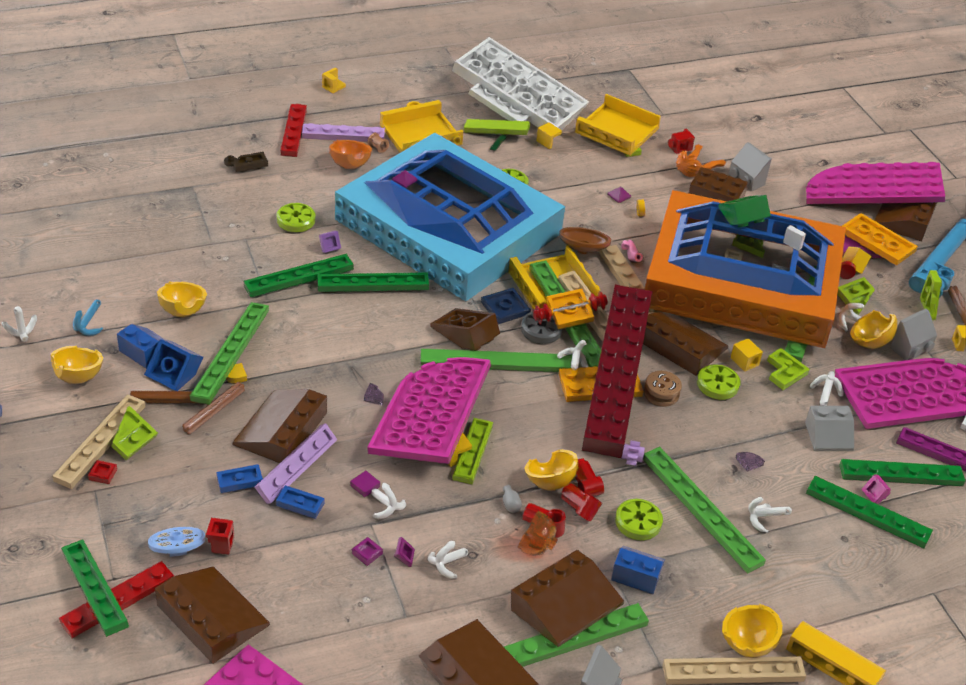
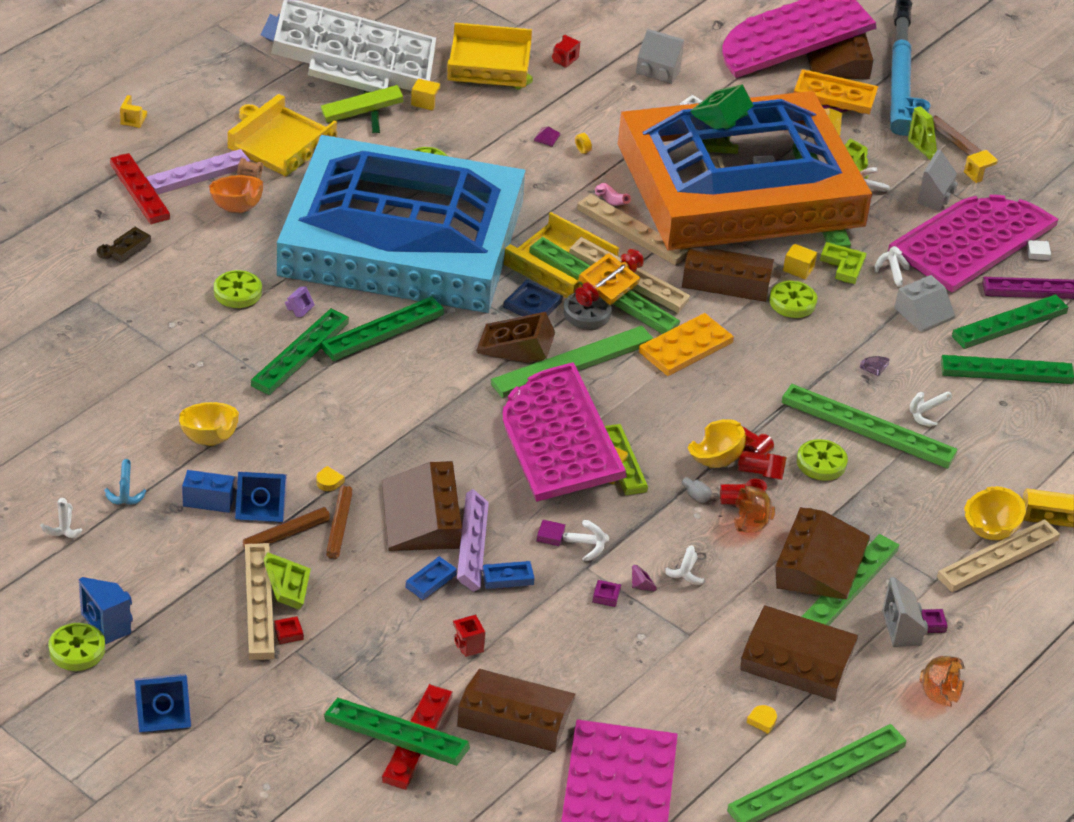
camera: 30 degrees left, 0 degrees up
(76, 364) = (166, 534): yellow cylinder -> none
(176, 540) = (429, 658): light blue shield -> none
(229, 353) = (307, 460): bright green tile -> none
(374, 395) = (483, 445): clear purple tile -> none
(404, 179) = (352, 199): magenta slope -> none
(577, 355) = (647, 323): white piece -> none
(584, 239) = (560, 199): dark orange dish -> none
(617, 372) = (705, 323): dark red brick -> none
(633, 453) = (772, 399): lavender gear -> none
(637, 569) = (857, 504): blue slope -> none
(662, 388) = (749, 326): medium nougat head -> none
(690, 165) = (597, 76): orange hair -> none
(717, 185) = (643, 92): reddish brown brick -> none
(794, 237) = (789, 121): white tile -> none
(874, 330) = (898, 190): yellow cylinder -> none
(876, 489) = (1002, 345): dark pink tile -> none

